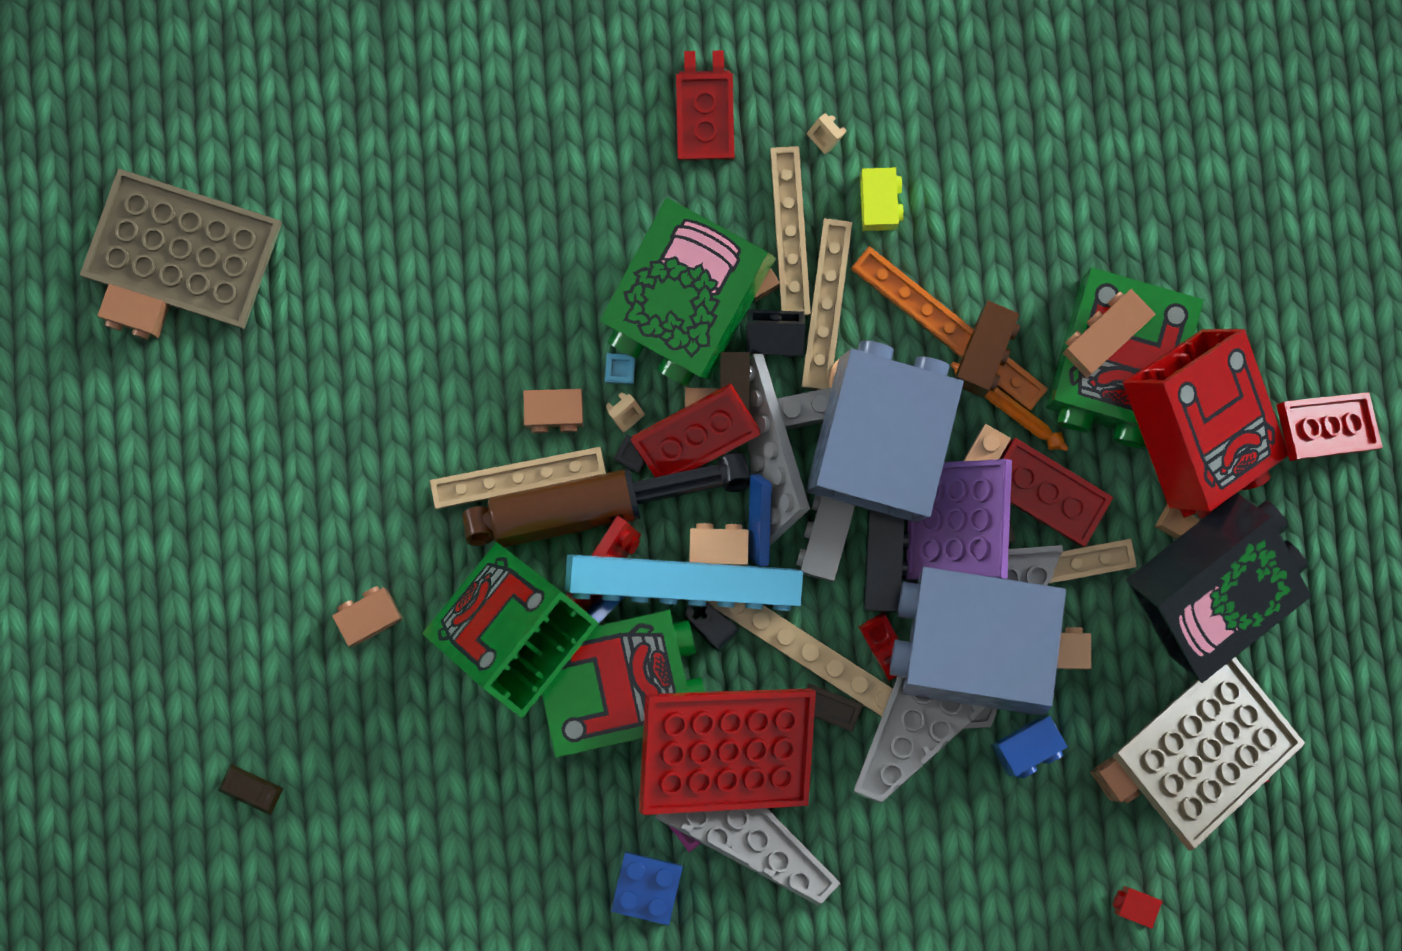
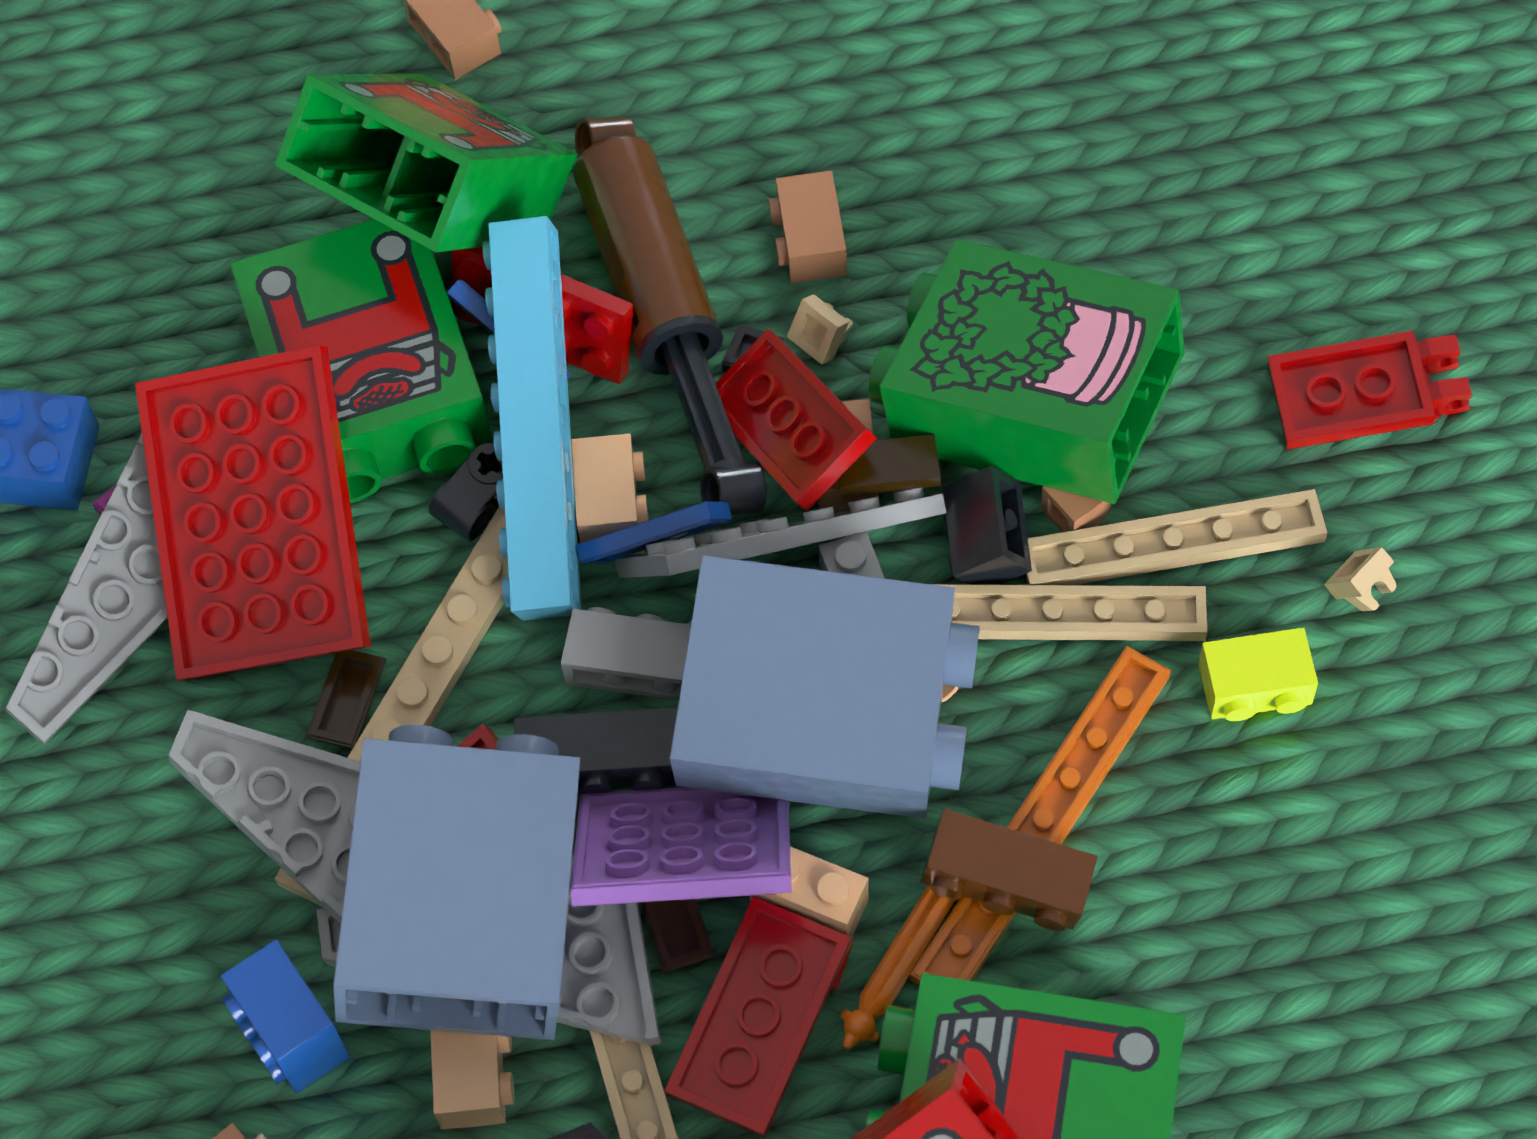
camera: 90 degrees right, 20 degrees down
(515, 477) = (694, 194): tan plate -> none
(620, 369) = (888, 319): medium azure tile -> none
(1107, 332) = (1059, 1044): nougat brick -> none

